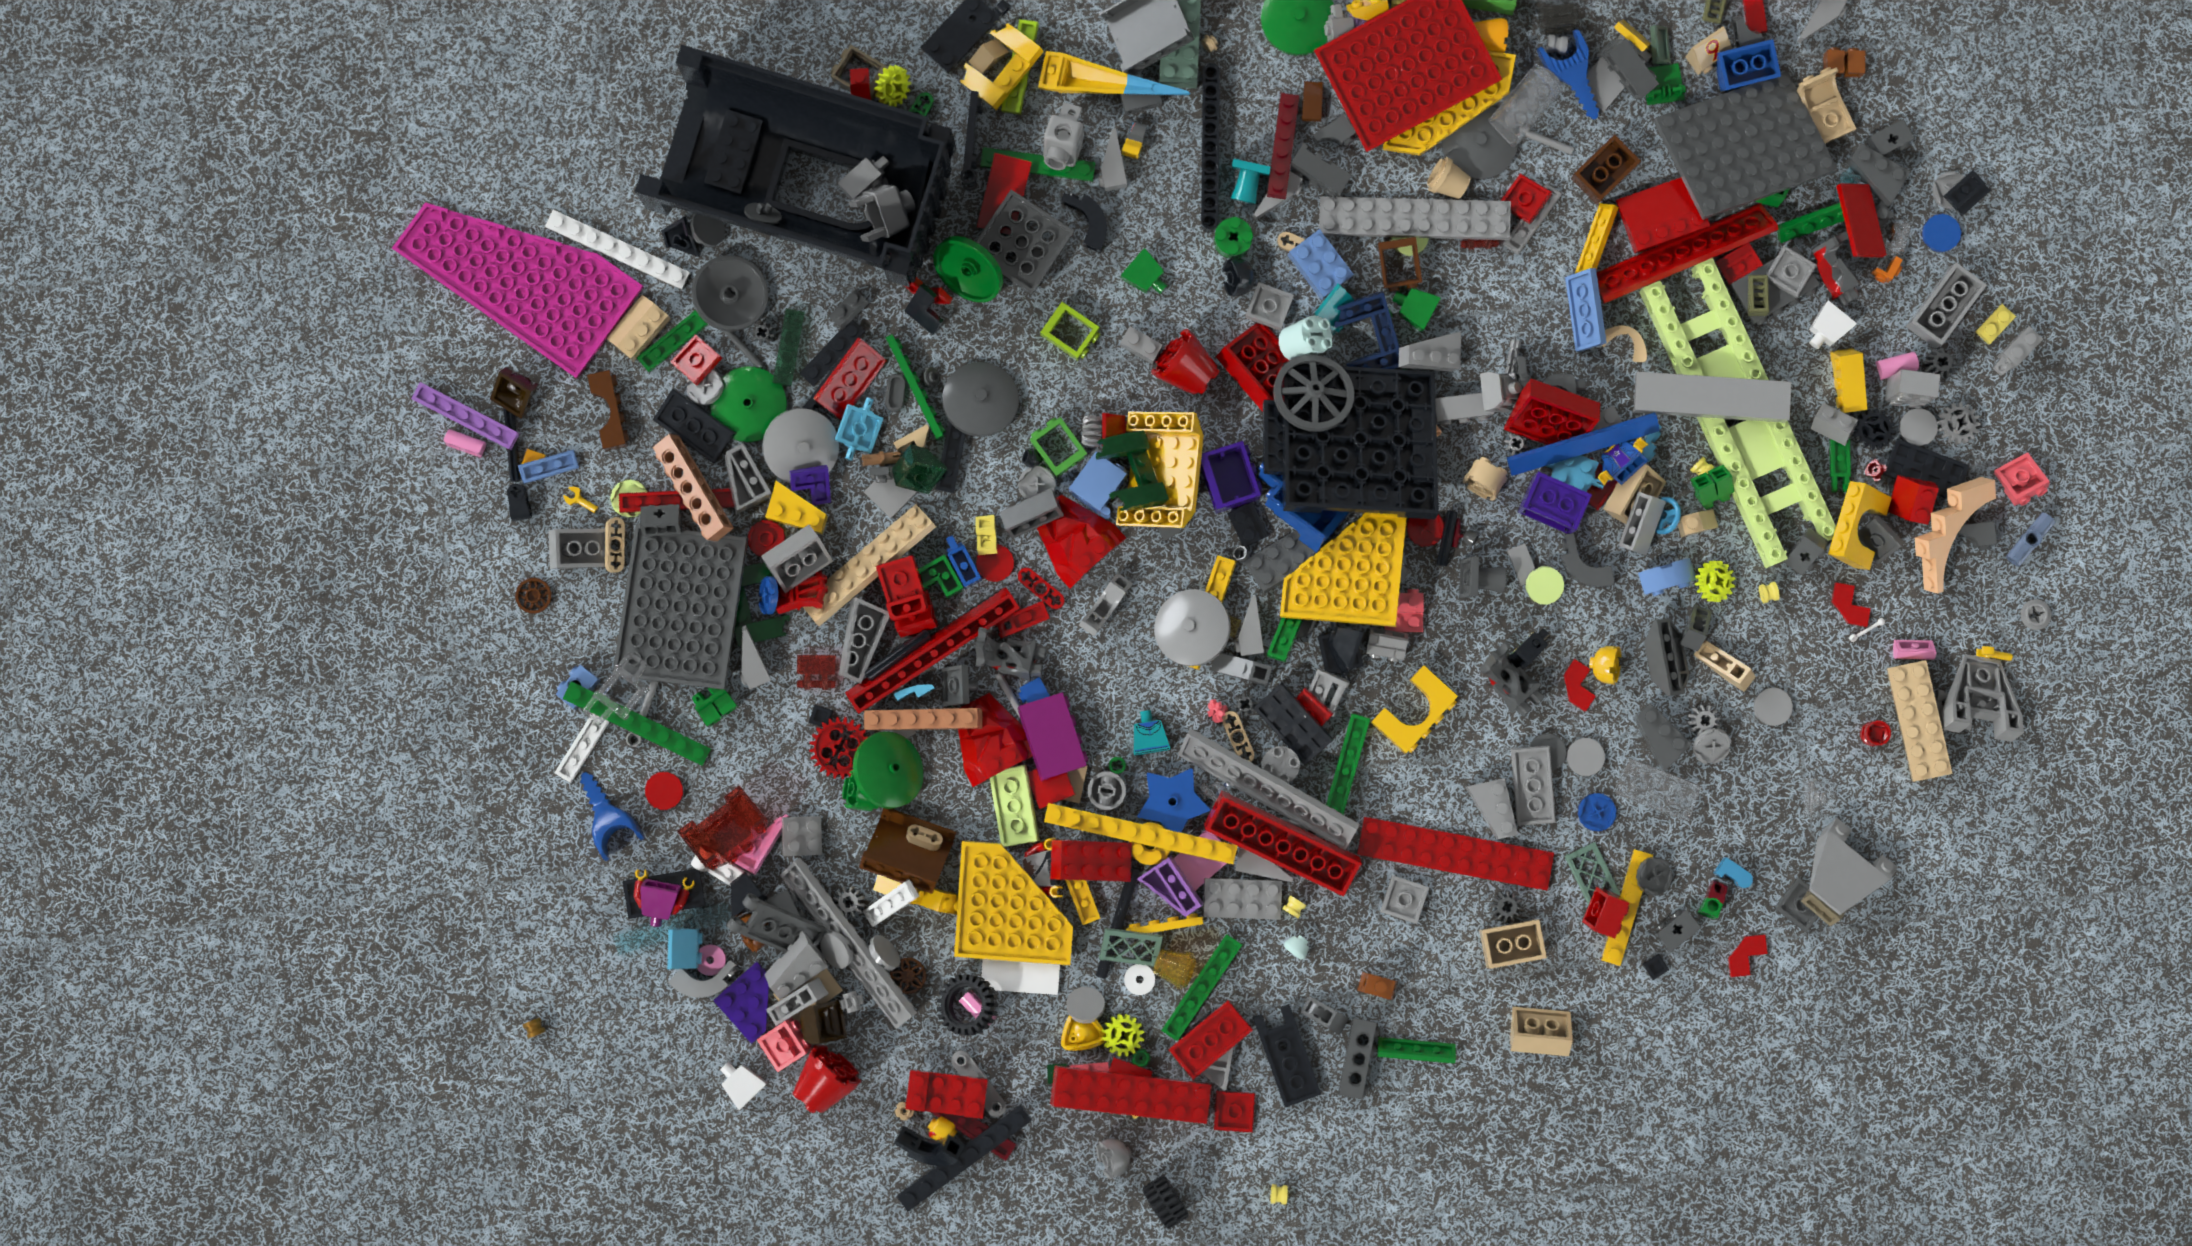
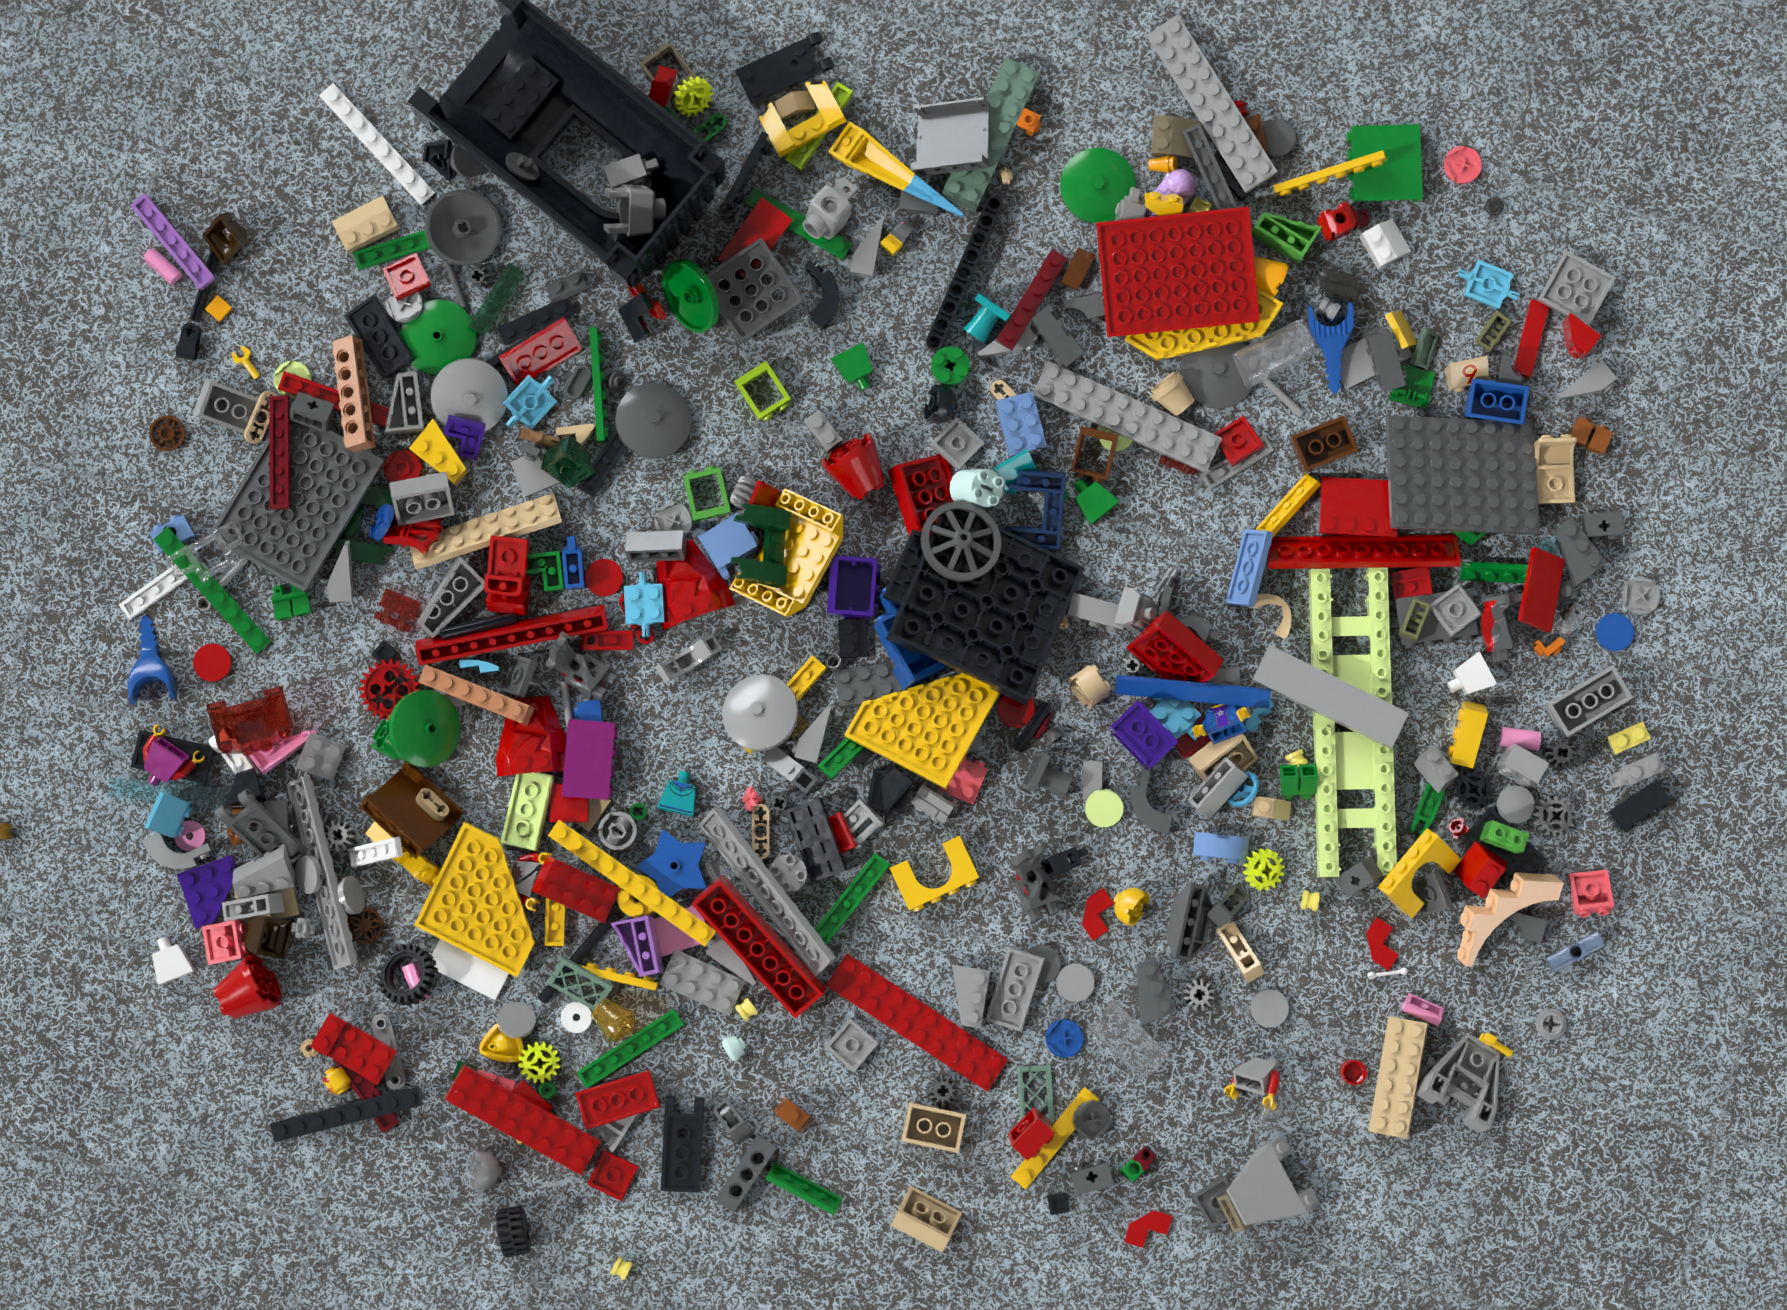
camera: 20 degrees right, 0 degrees up
(532, 286) = (285, 147): dark pink wing -> none
(548, 466) = (230, 319): medium blue tile -> none
(613, 433) = (302, 313): reddish brown arch -> none
(646, 570) = (279, 452): none -> dark red plate
(929, 1151) = (314, 1093): black arch -> none
(986, 535) = (606, 549): light yellow slope -> none
(1031, 458) = (678, 494): black plate -> none
(1043, 572) = (644, 604): none -> medium azure plate
(1433, 354) = (1090, 551): light grey wedge -> none
(1712, 746) = (1196, 1021): light grey tile -> none
(1732, 870) = (1171, 1152): dark azure leg -> none
(1791, 774) = (1257, 1077): none -> light grey torso
(1931, 459) = (1509, 838): none -> bright green window
(1967, 193) = (1652, 604): black plate -> none
(2031, 383) = (1638, 807): none -> black brick

